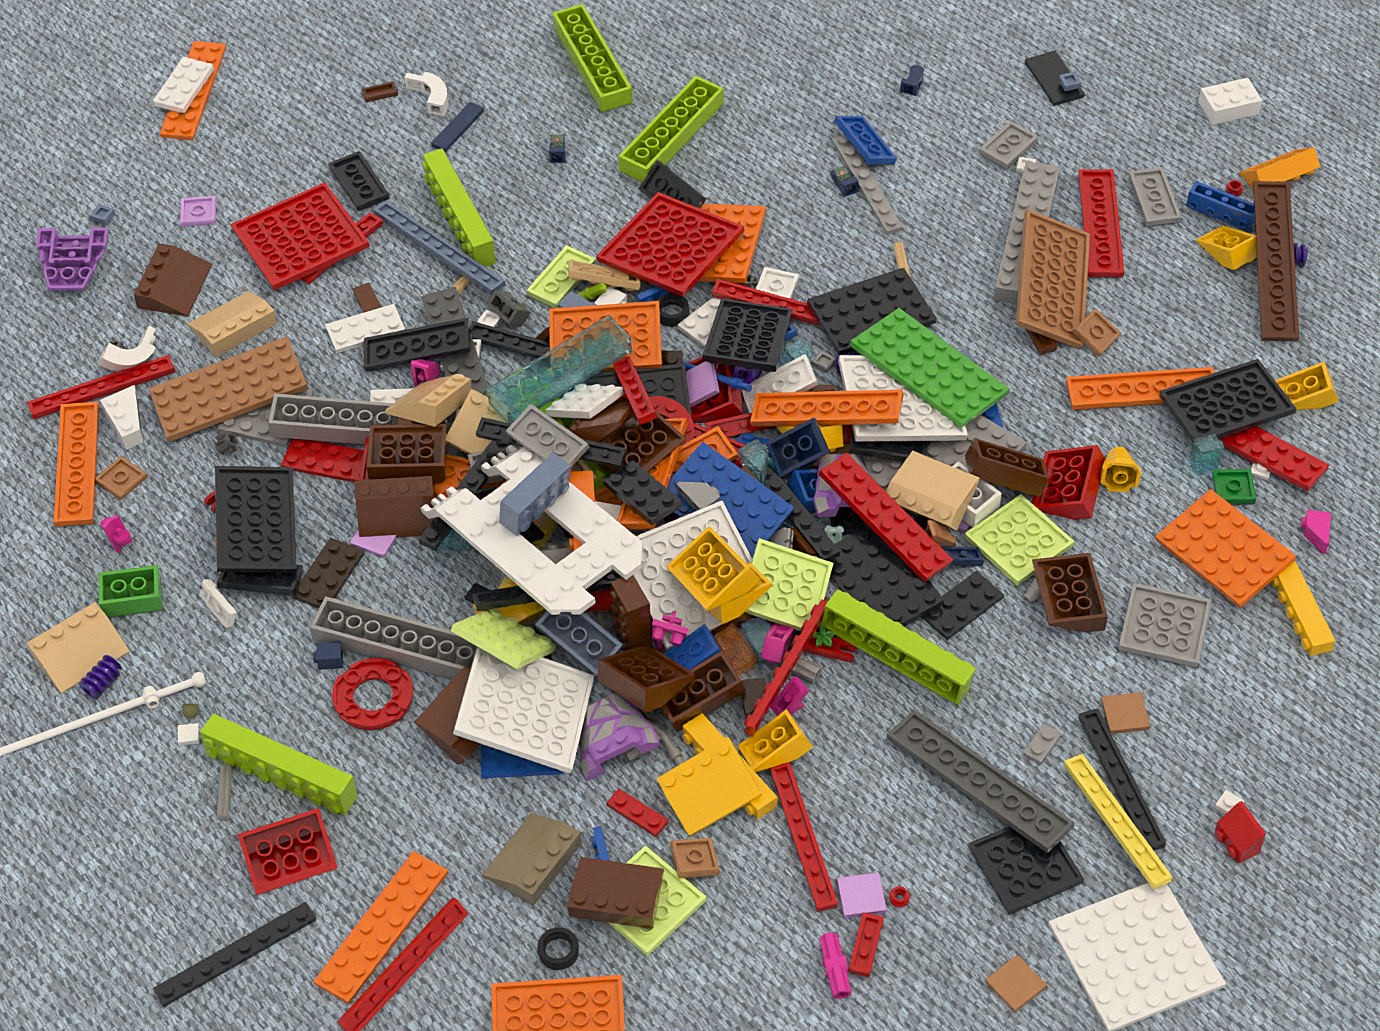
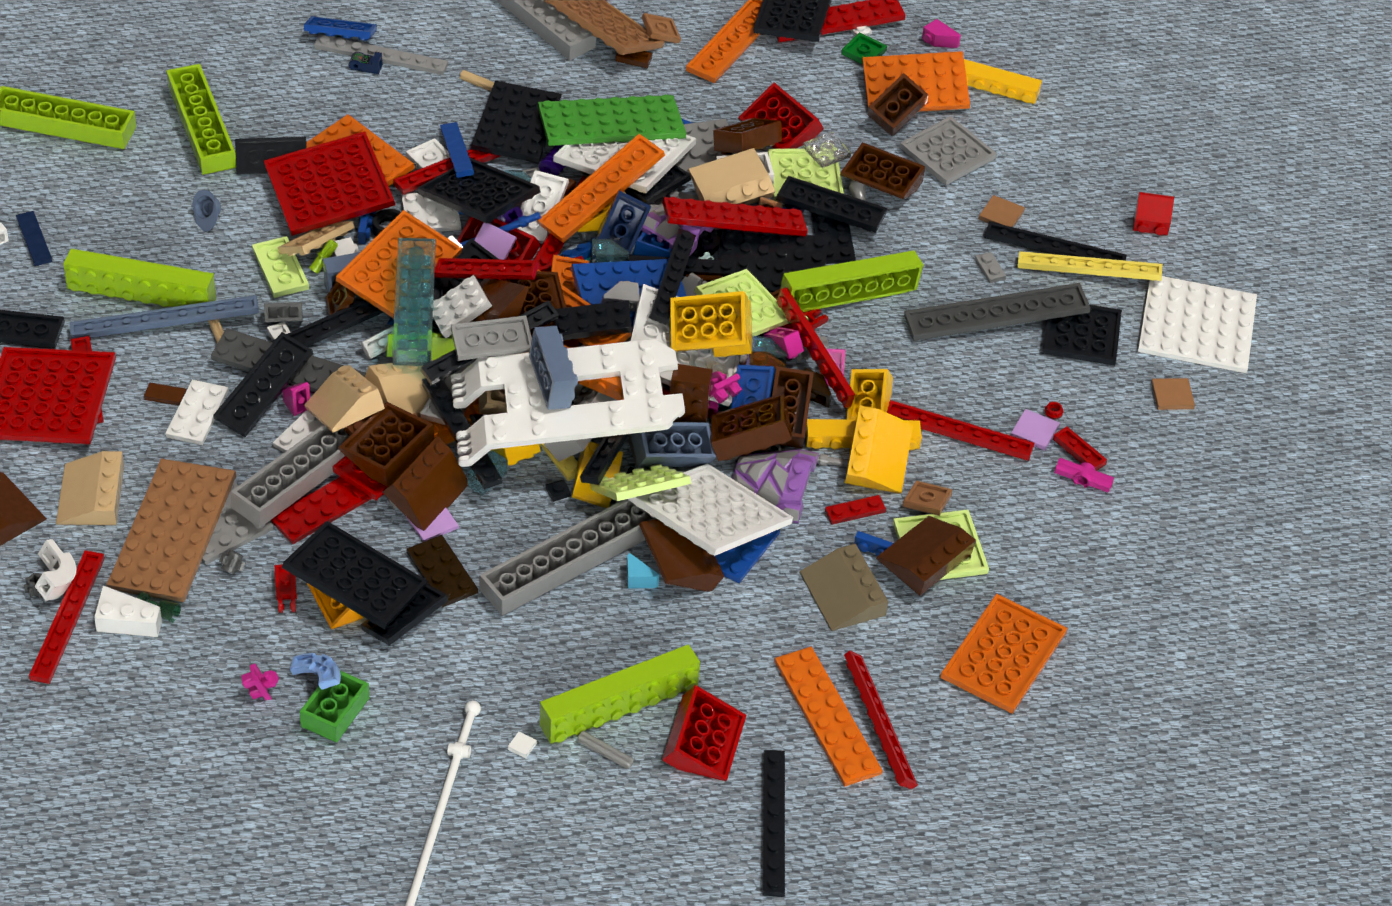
camera: 60 degrees left, 5 degrees down
(76, 464) = (141, 676): orange plate -> none
(76, 646) = (358, 774): tan slope -> none
(99, 675) = (407, 771): dark purple piece -> none
(121, 478) = (188, 655): medium nougat tile -> none
(150, 434) = (167, 608): none -> clear green piece
(159, 553) = (321, 665): none -> light blue tile
(190, 710) = (500, 729): olive hinge -> none
(217, 603) = (404, 655): white hinge -> none
(328, 655) = (532, 610): dark blue brick -> none
(368, 670) = (600, 581): red plate -> none
(425, 696) = (640, 575): none -> medium azure slope
(557, 146) = (136, 193): dark blue leg -> none
(558, 963) = (940, 630): black tyre -> none
(579, 197) = (203, 204): none -> sand blue piece
(760, 514) = (672, 276): none -> black plate
(793, 294) = (457, 150): none -> blue tile
(990, 578) = (831, 204): none -> black plate
(1058, 534) = (827, 149): none -> clear plate
(1120, 469) = (799, 86): yellow cone -> none
(1171, 550) = (897, 104): none -> reddish brown brick
(1206, 454) = (830, 42): clear light blue brick -> none
(1227, 802) = (1119, 210): white plate -> none

